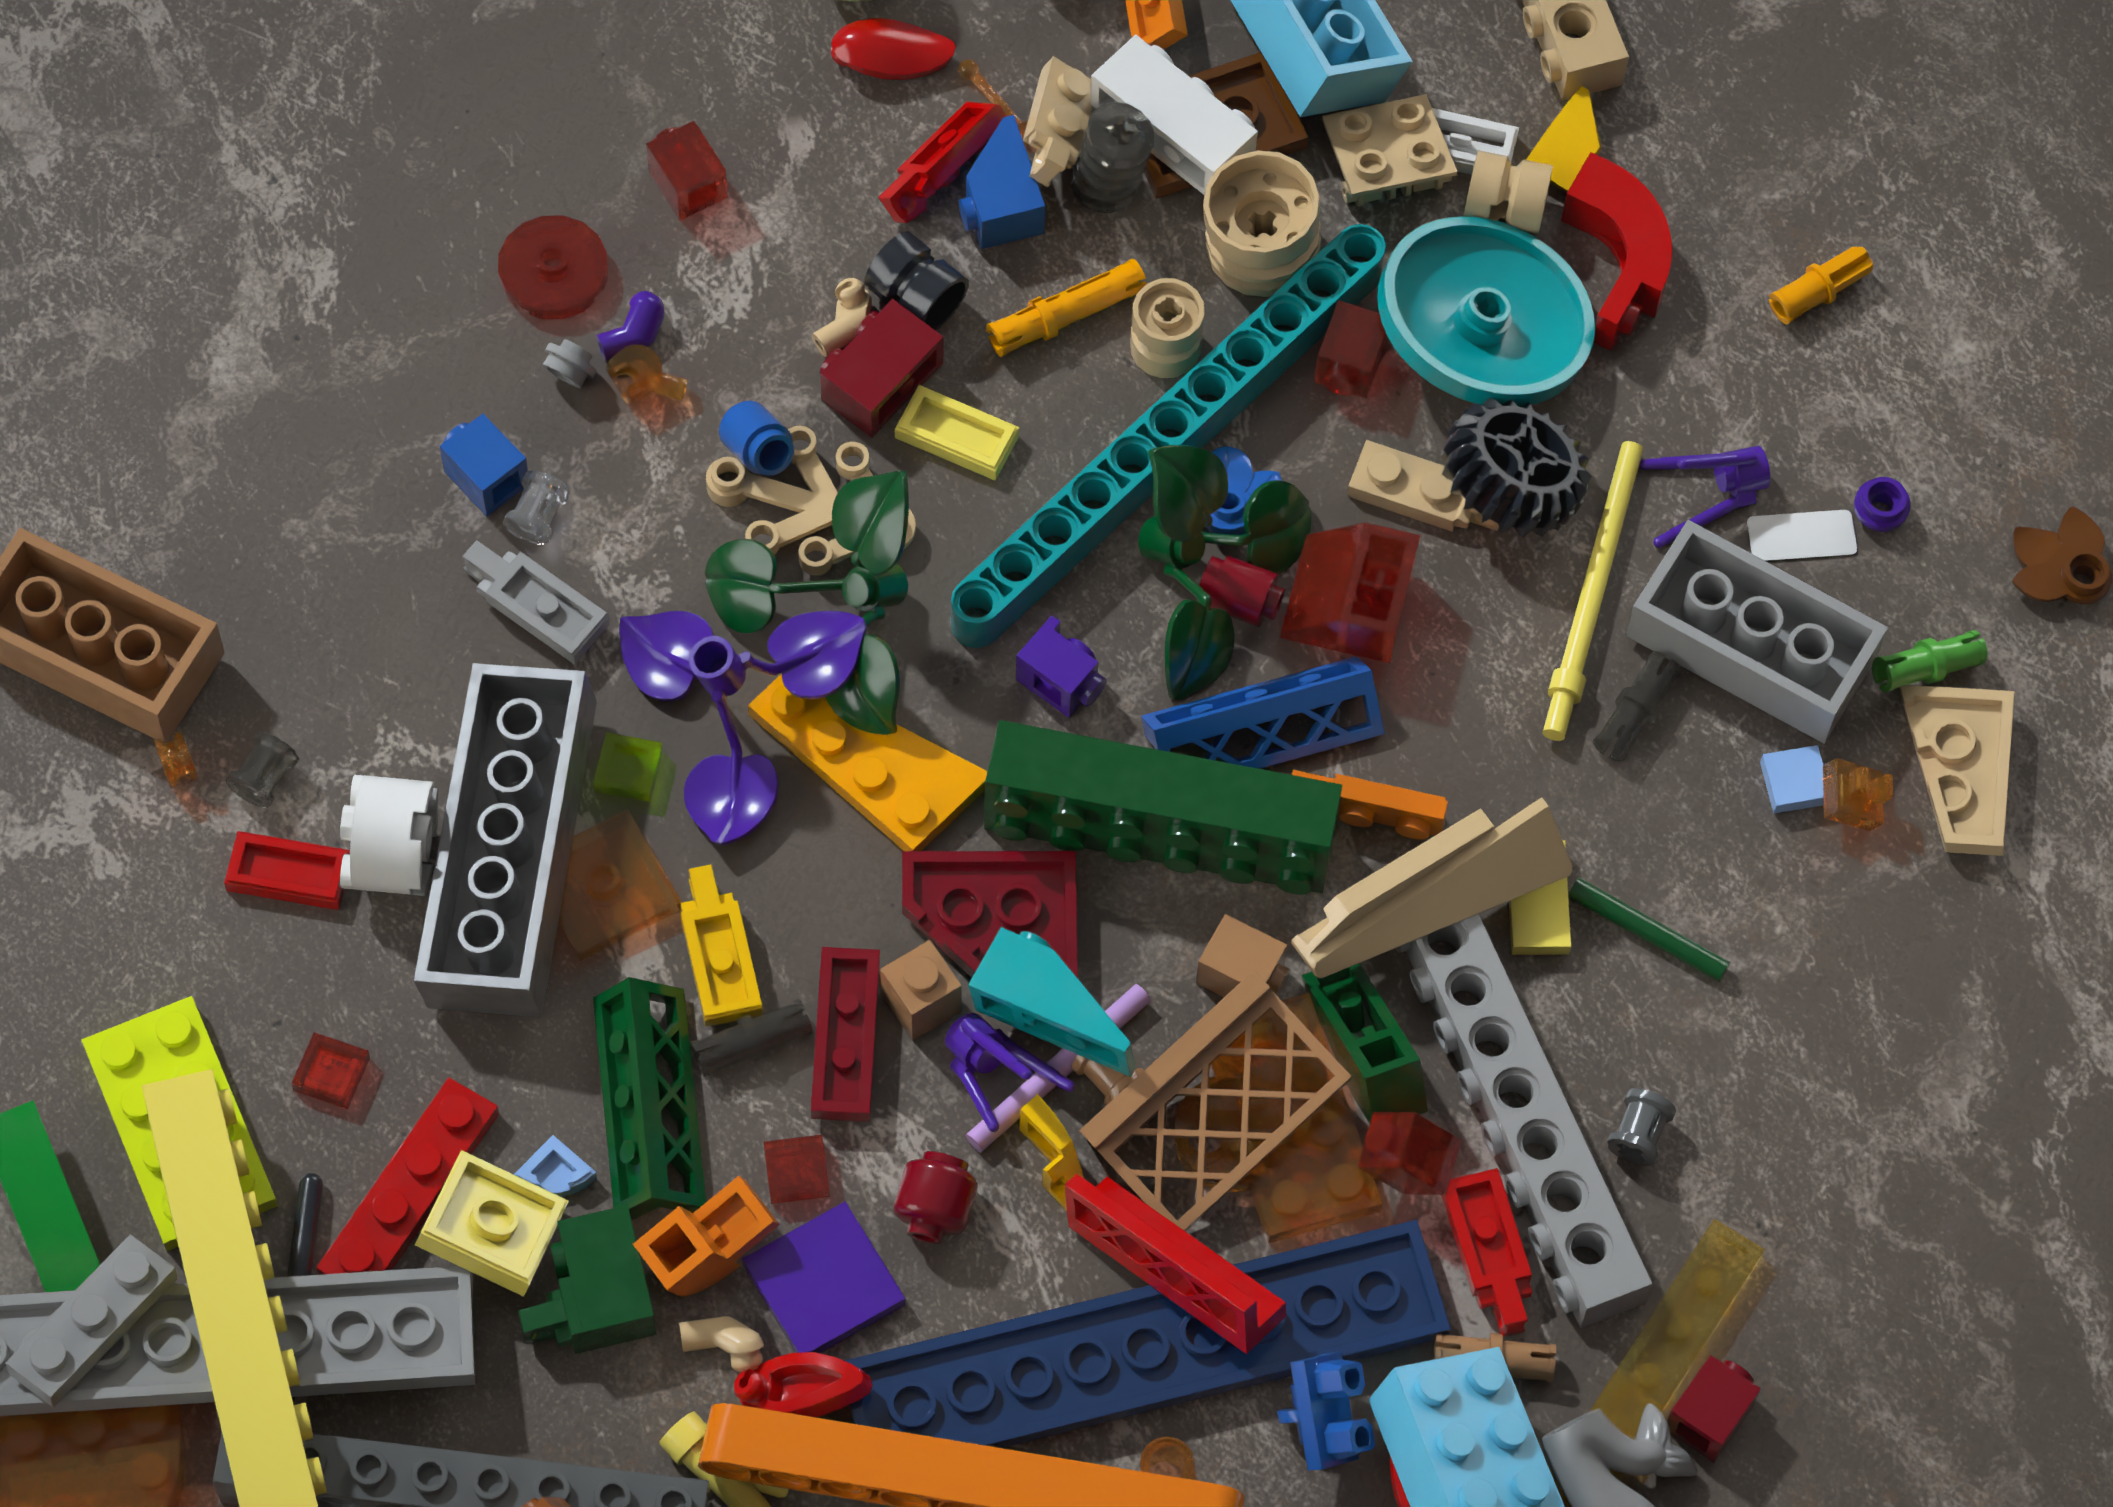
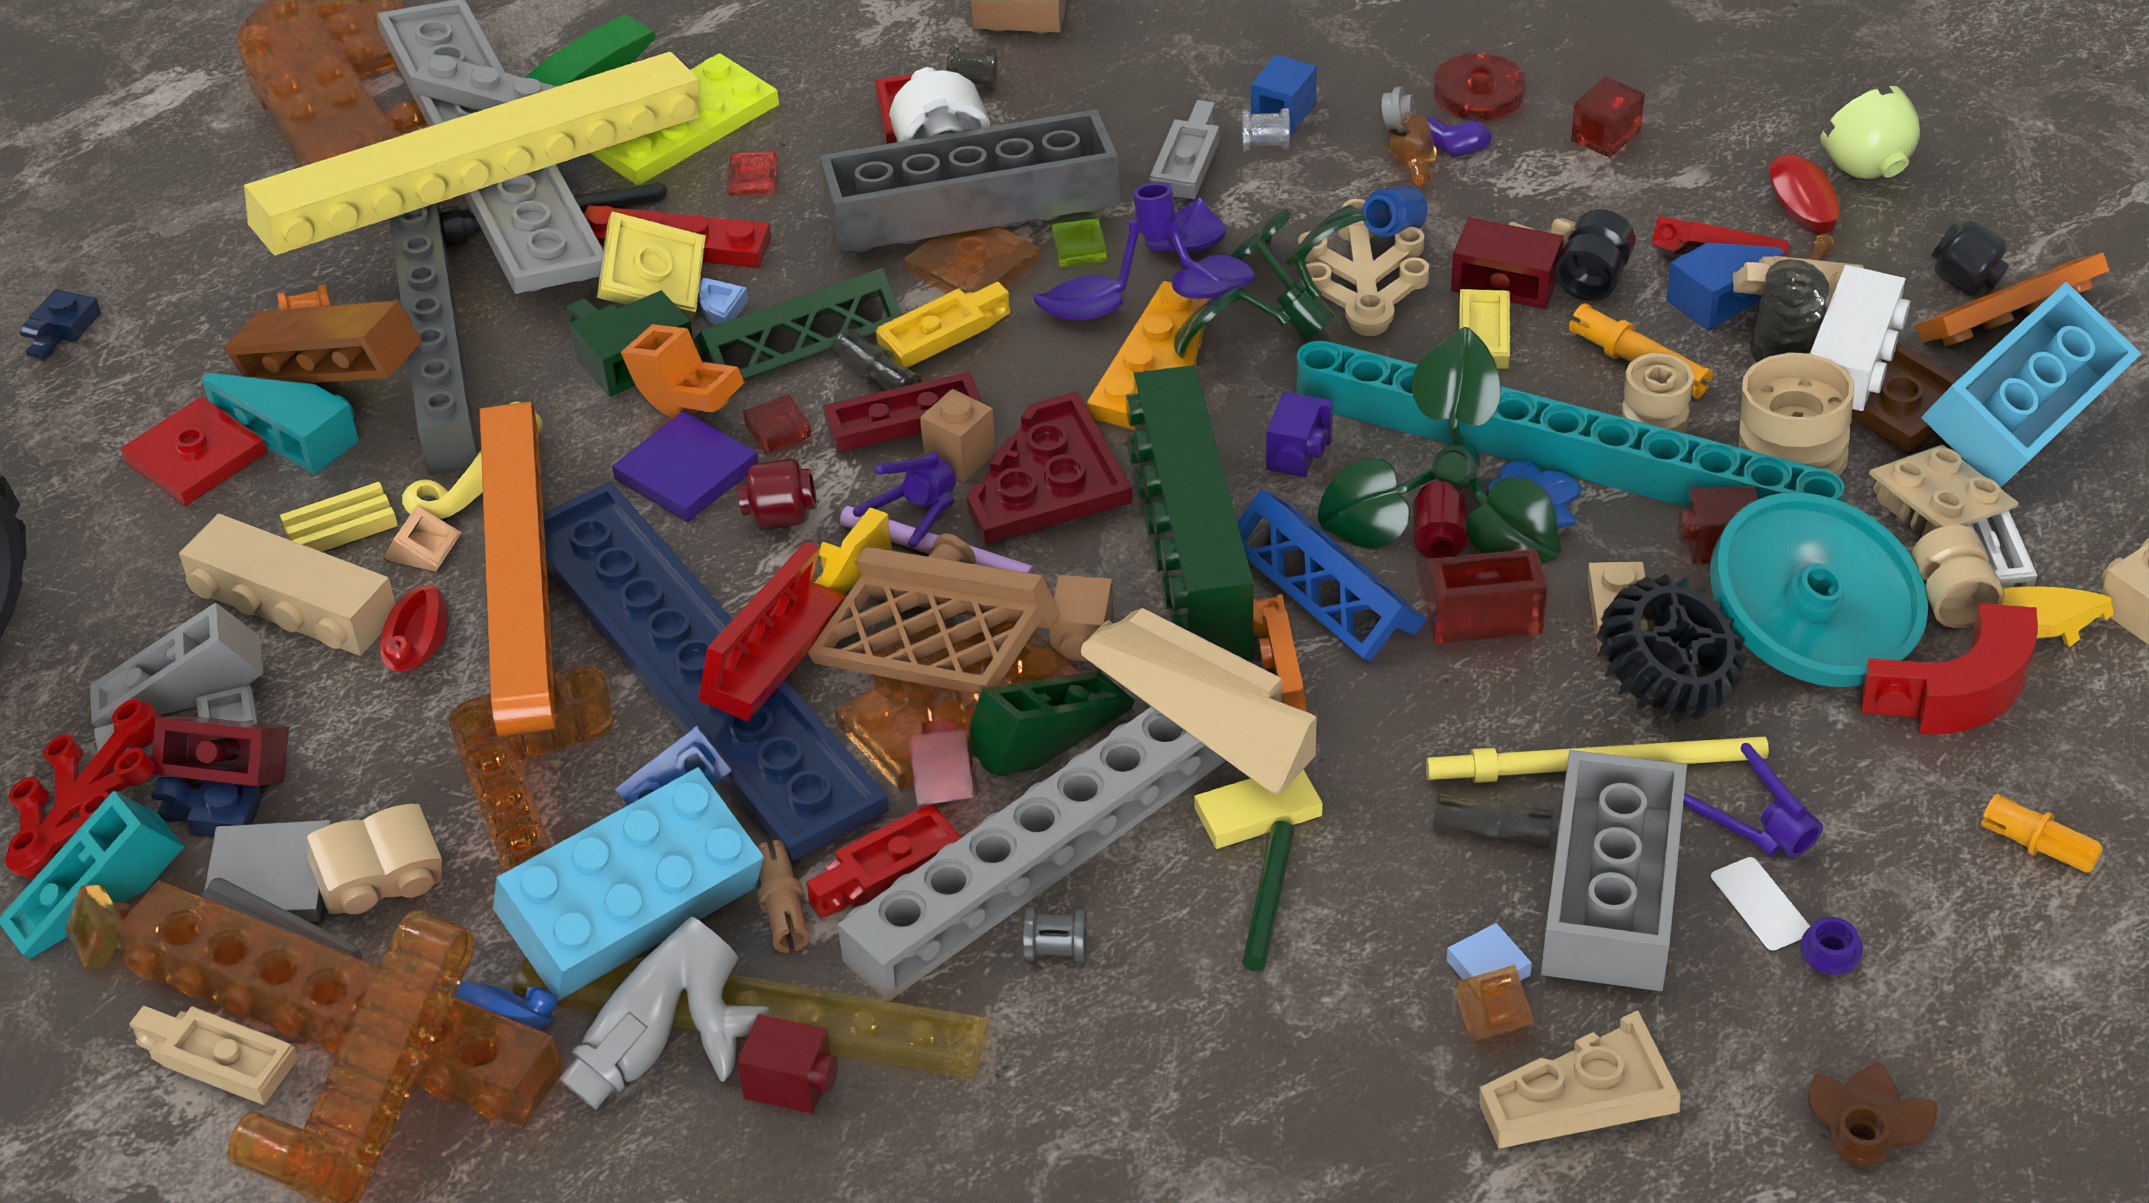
camera: 75 degrees right, 20 degrees down
(175, 759) = (958, 28): clear orange bush -> none
(726, 1334) = (614, 426): tan arm -> none
(802, 1384) = (582, 468): red arm -> none
(1037, 993) = (972, 486): teal slope -> none
(1929, 661) = (1676, 1023): bright green pin -> none

